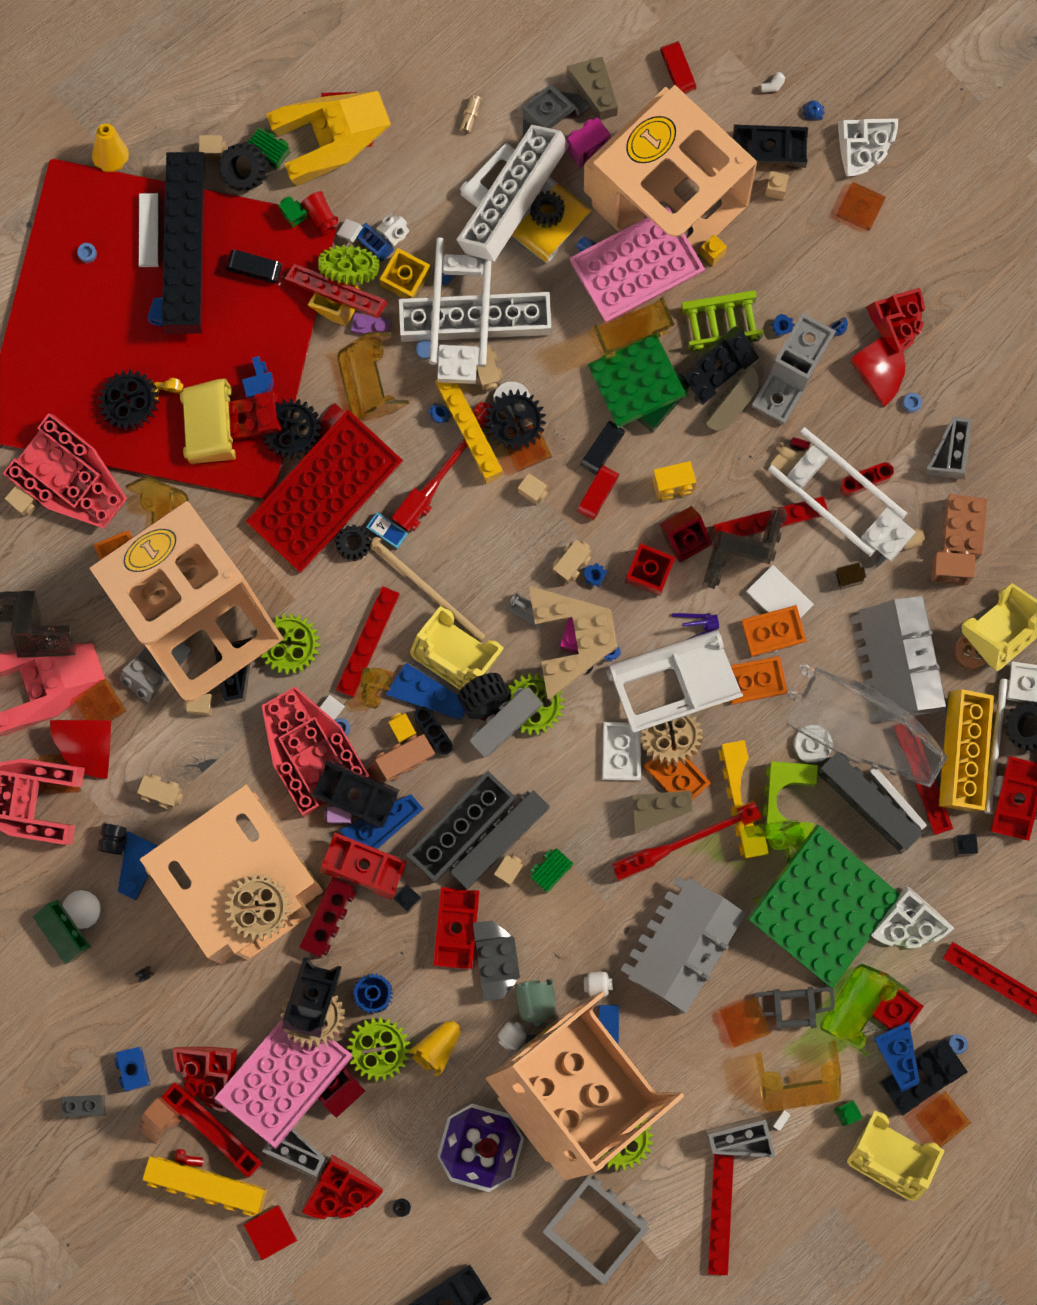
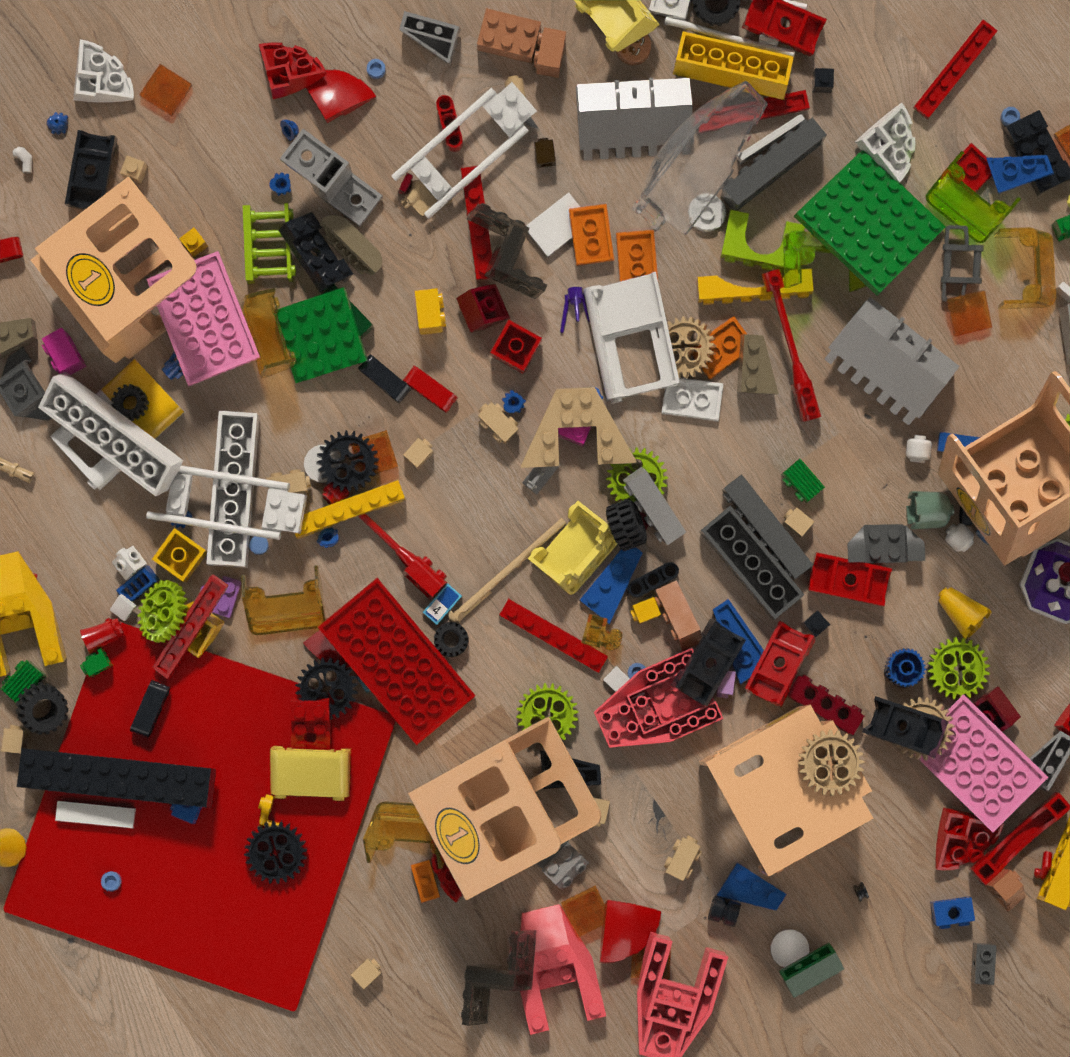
camera: 85 degrees left, 5 degrees up
(67, 475) = (347, 922): coral wedge -> none
(260, 383) = (277, 714): blue brick -> none

